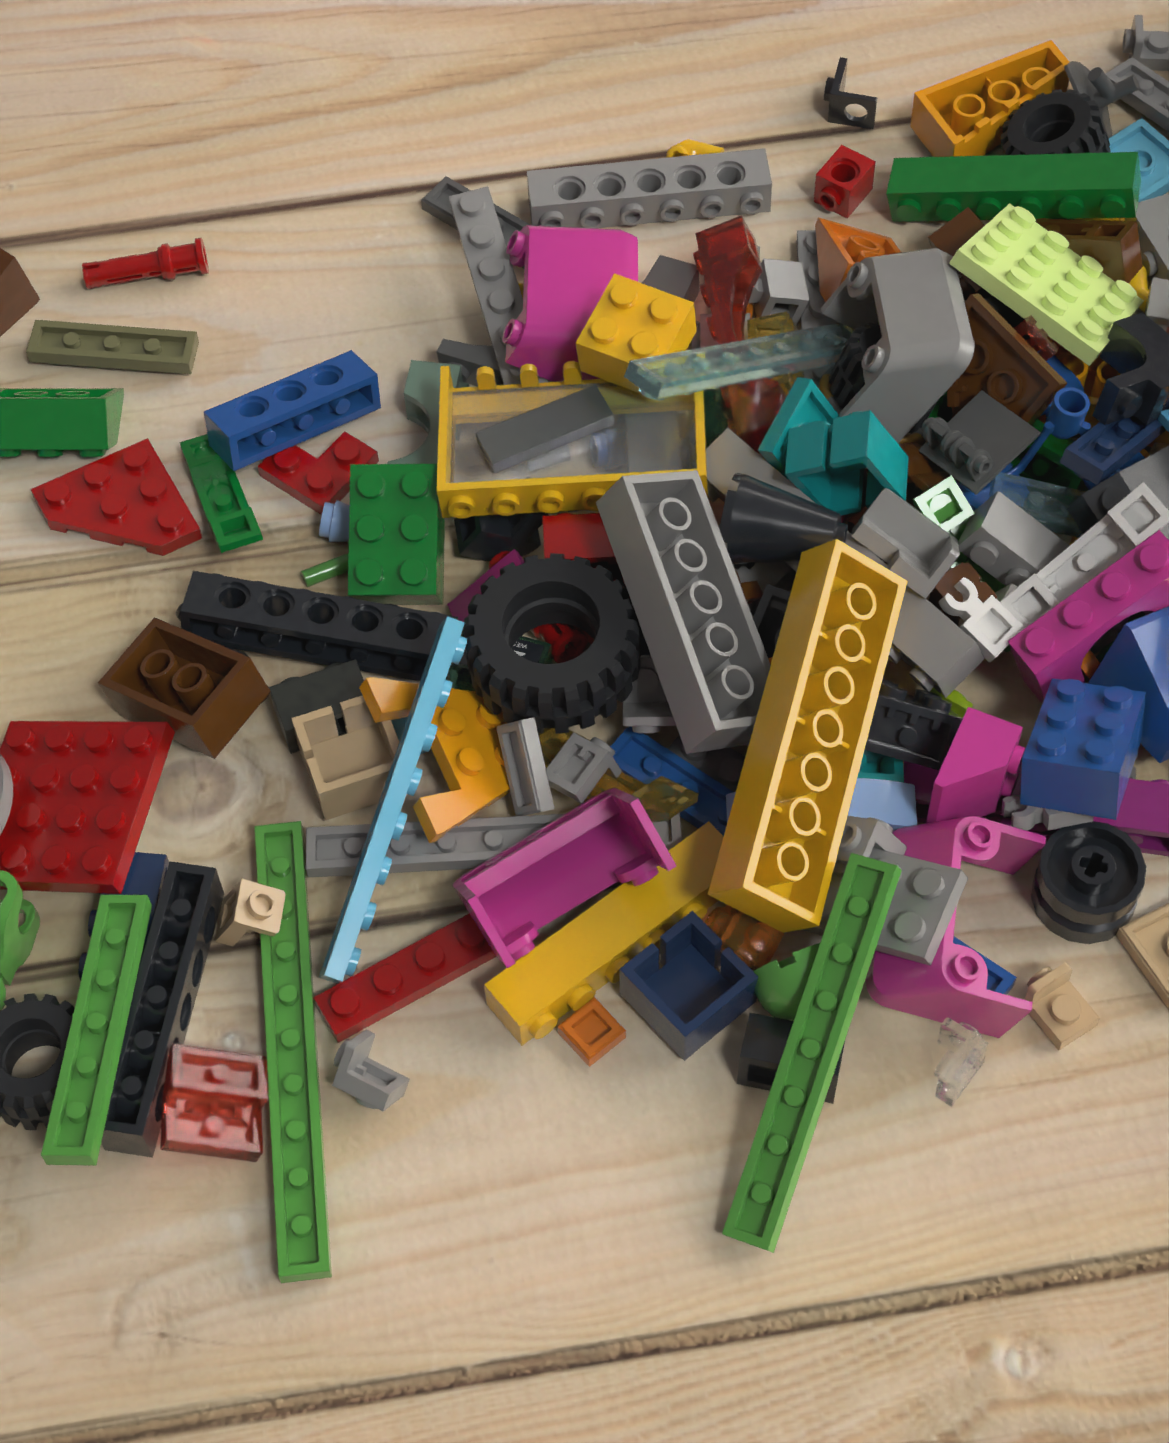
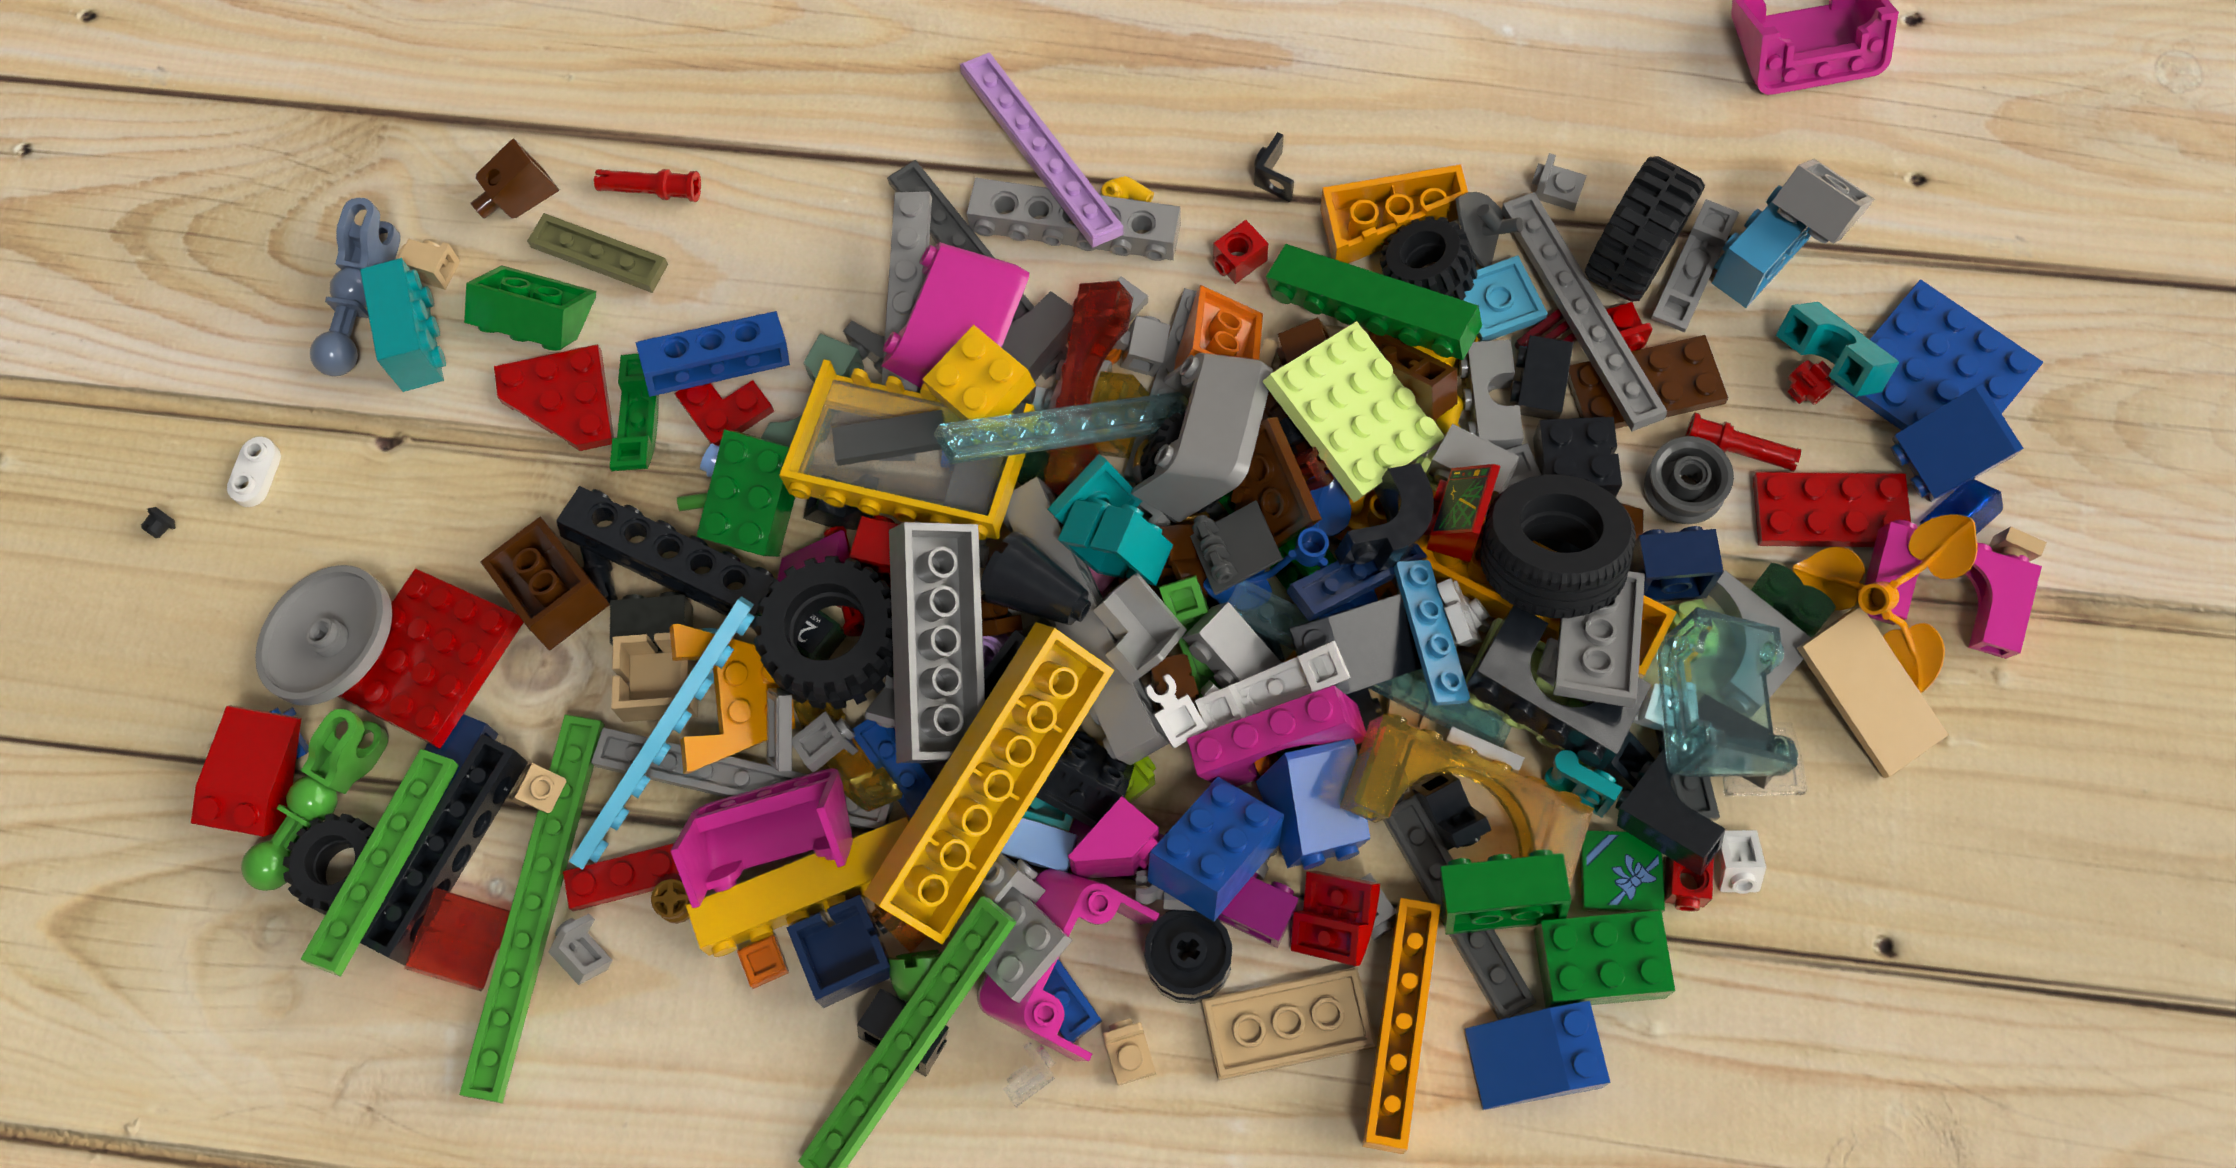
camera: 20 degrees right, 10 degrees up
(460, 981) = (666, 896): none -> pearl gold wheel
(590, 130) = (1042, 150): none -> lavender tile

